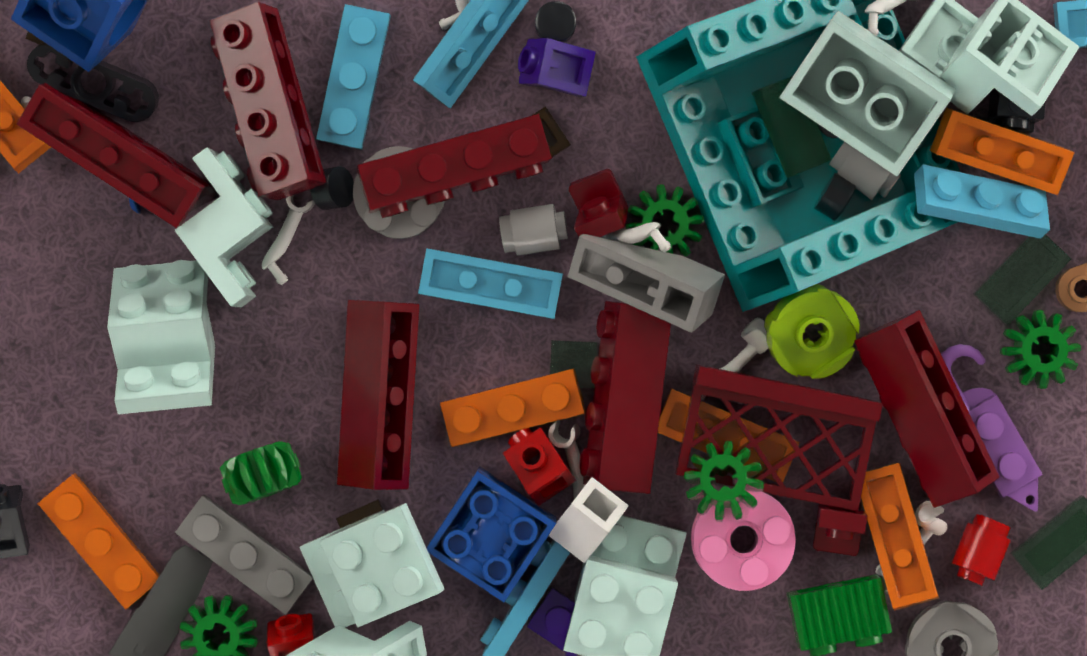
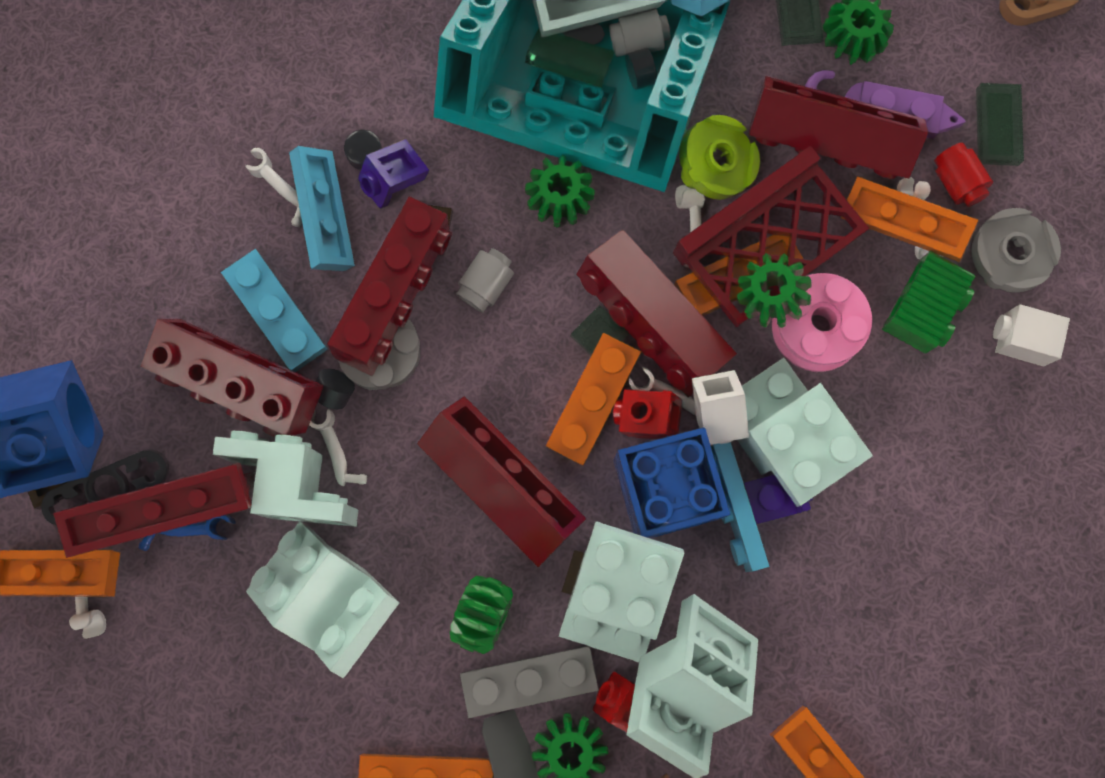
camera: 50 degrees left, 10 degrees down
(490, 283) = (495, 340): medium azure plate -> none
(599, 204) = (507, 221): dark red bracket -> none
(640, 233) = (539, 227): white piece -> none
(648, 280) = (586, 226): light grey slope -> none
(839, 530) = (869, 254): dark red bracket -> none

